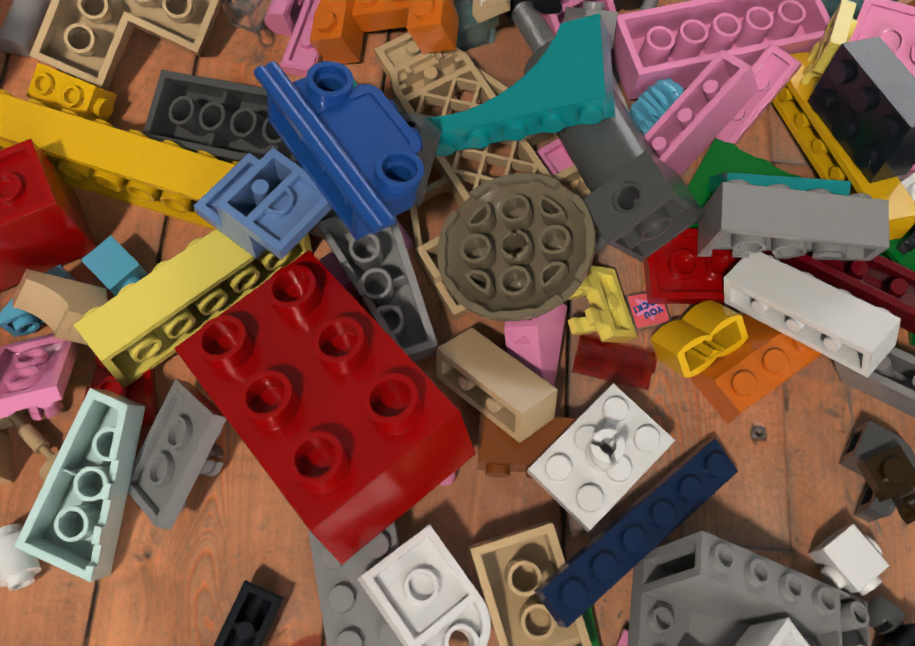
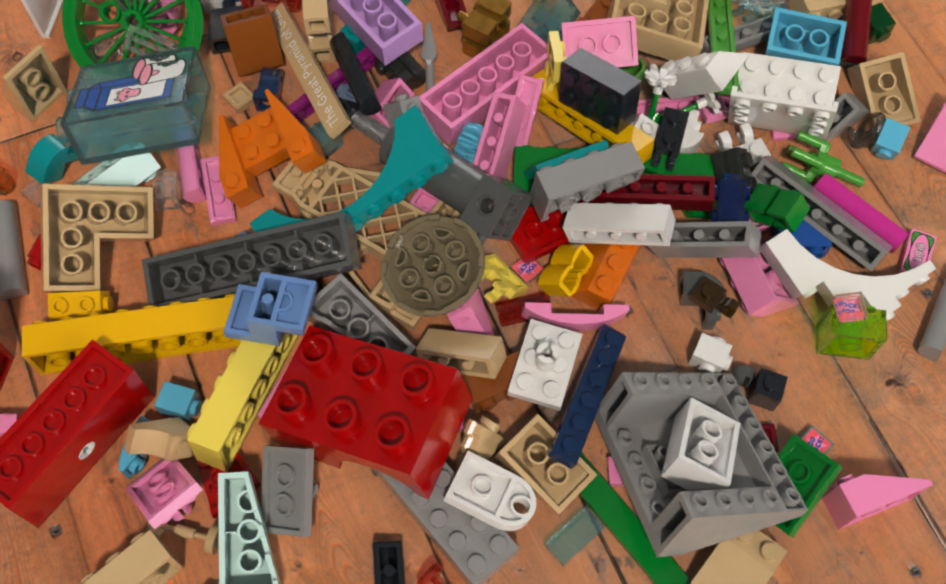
camera: 30 degrees left, 5 degrees down
(347, 143) = (308, 248): blue brick -> none
(459, 514) = (480, 438): none -> tan rock
(634, 383) = (606, 315): none -> bright pink slope

